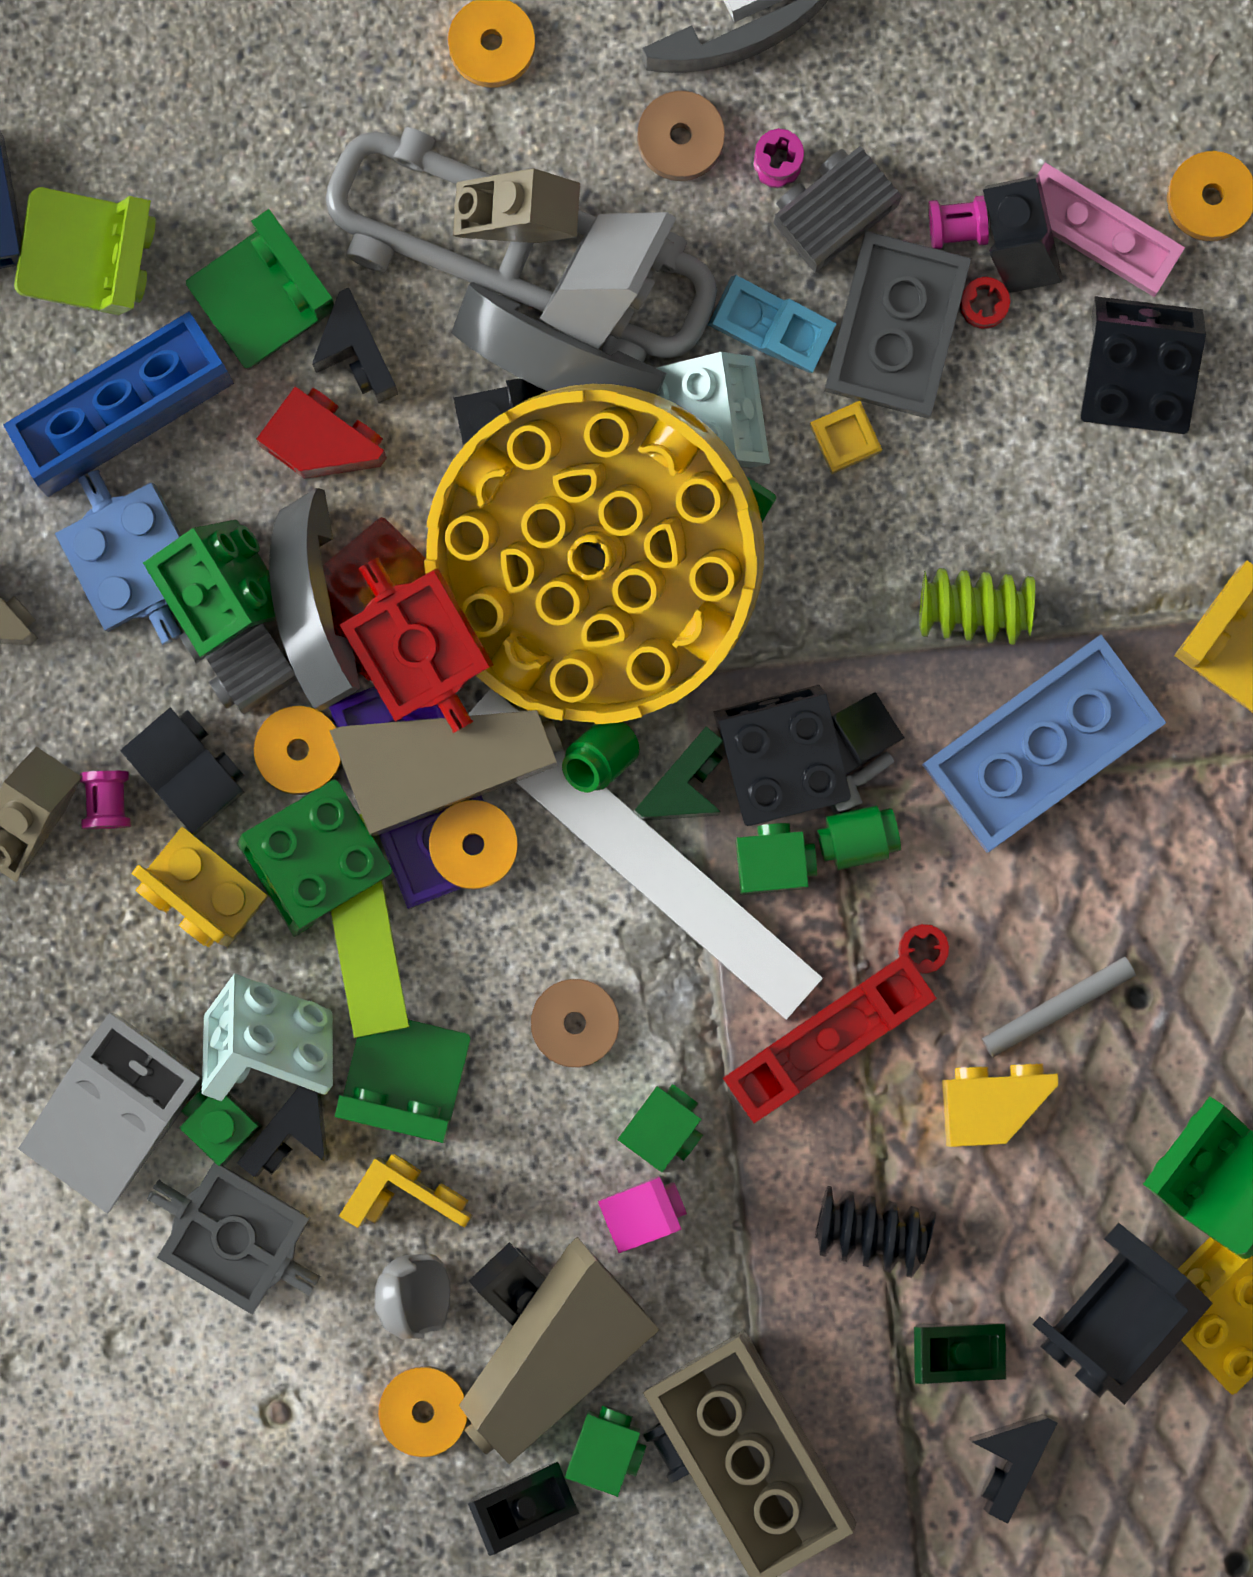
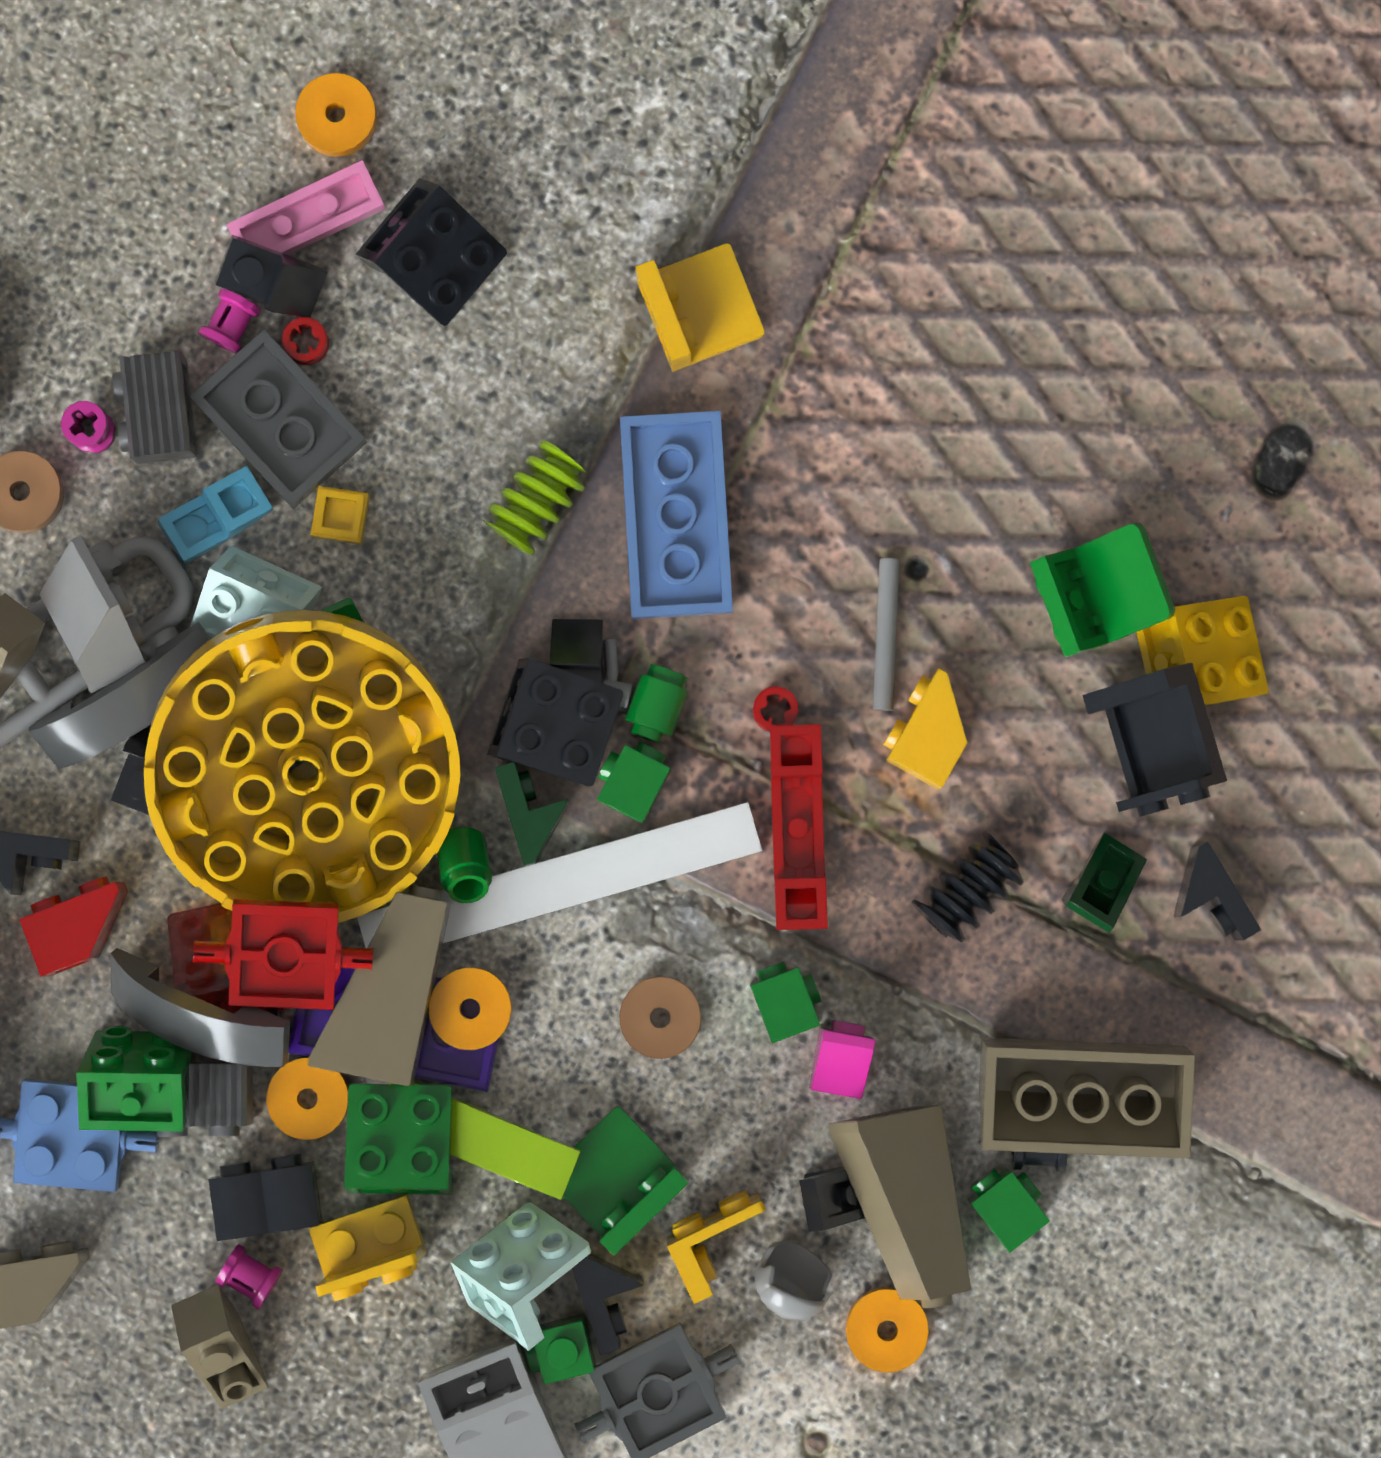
camera: 55 degrees left, 0 degrees up
(522, 1508) = (1011, 1301): black slope -> none

